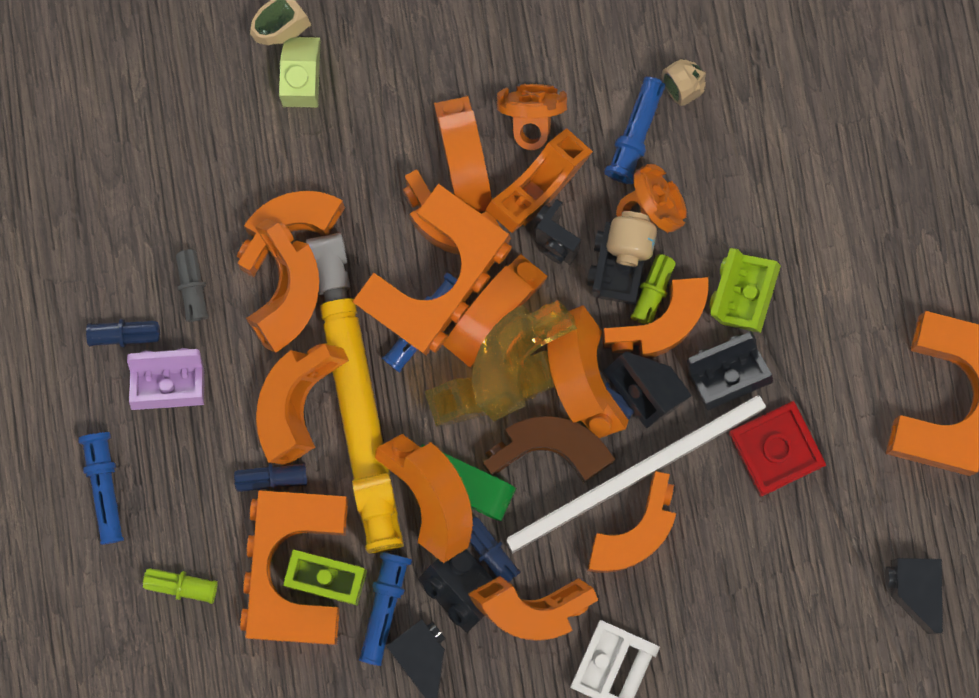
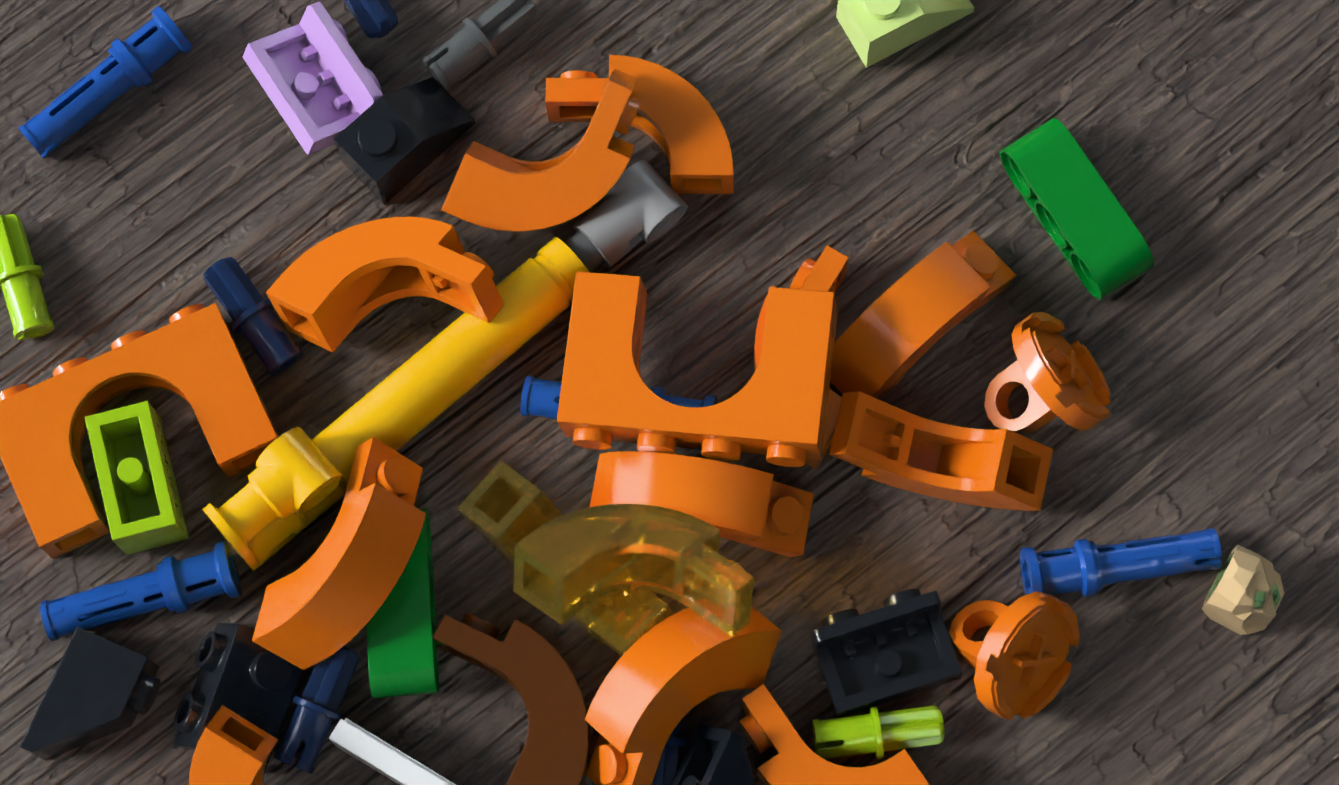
camera: 65 degrees right, 5 degrees down
(221, 352) = (401, 136): none -> black slope
(452, 48) = (1076, 208): none -> green beam
(558, 242) = (879, 500): black bracket -> none
(631, 238) = (931, 645): tan head -> none

